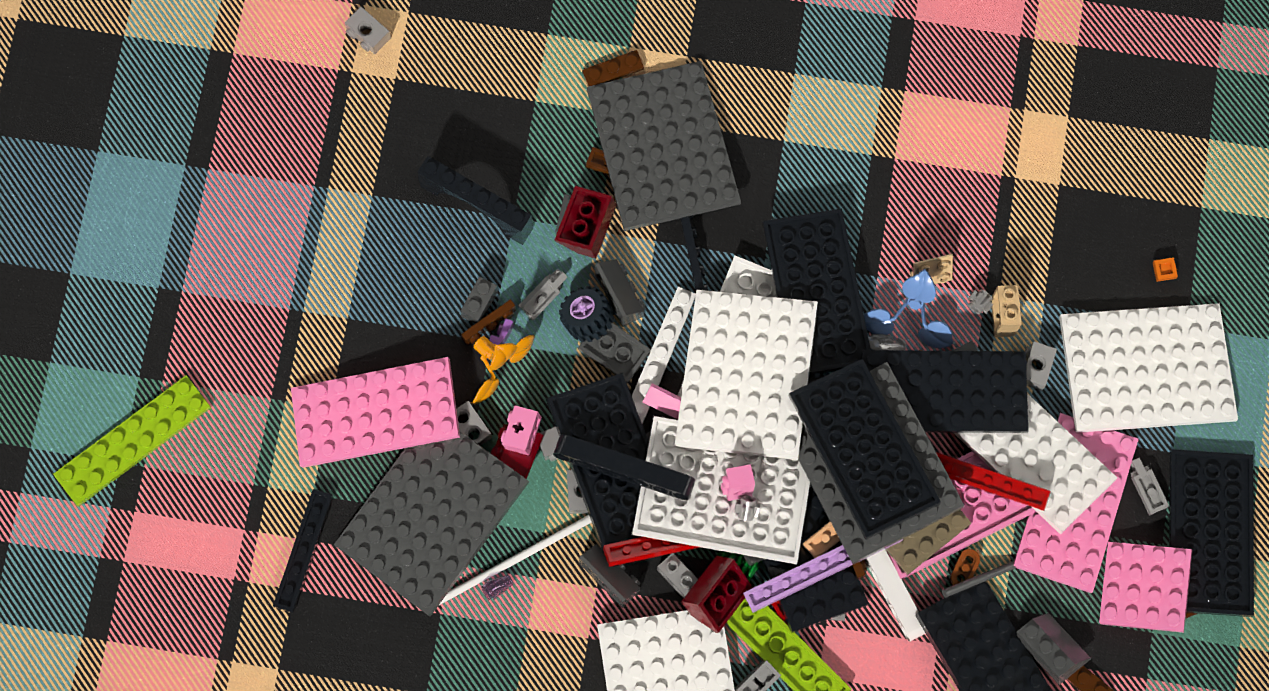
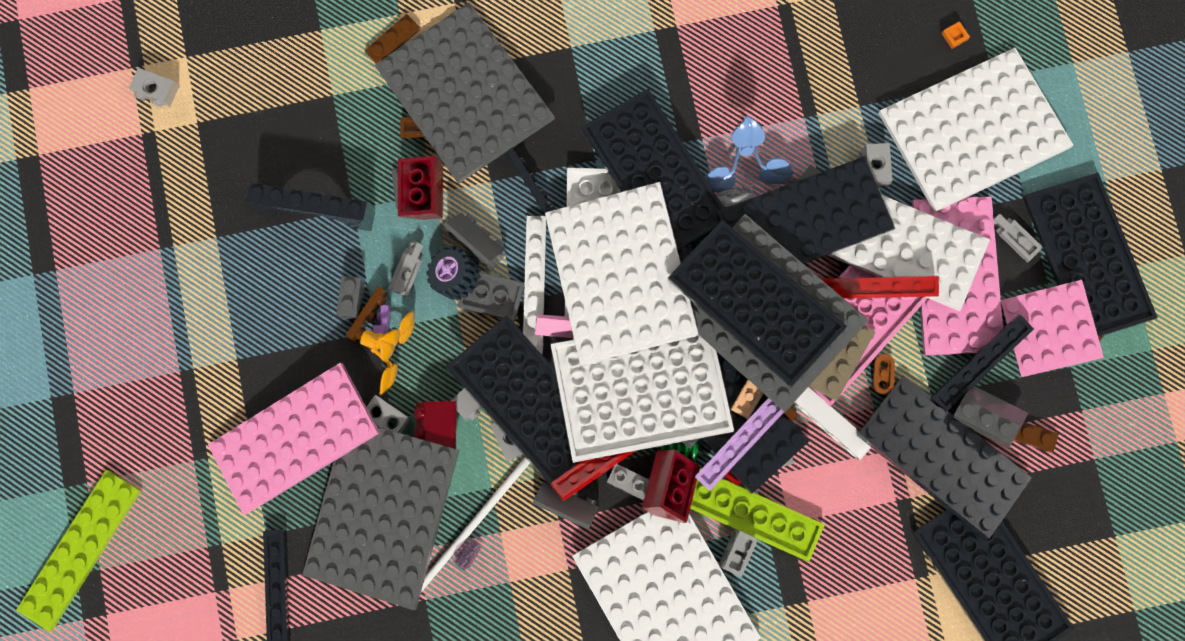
camera: 15 degrees left, 5 degrees up
(523, 440) = (440, 413): bright pink brick -> none
(624, 467) = (541, 403): black beam -> none
(738, 482) = (652, 378): bright pink brick -> none
(747, 508) = (669, 398): light grey gear -> none
(938, 268) = (756, 109): tan hinge -> none
(978, 579) = (900, 379): dark grey bar -> none
(980, 301) = (803, 126): light grey gear -> none
(1006, 304) = (830, 118): tan window -> none
(1065, 593) = (982, 362): none -> black plate

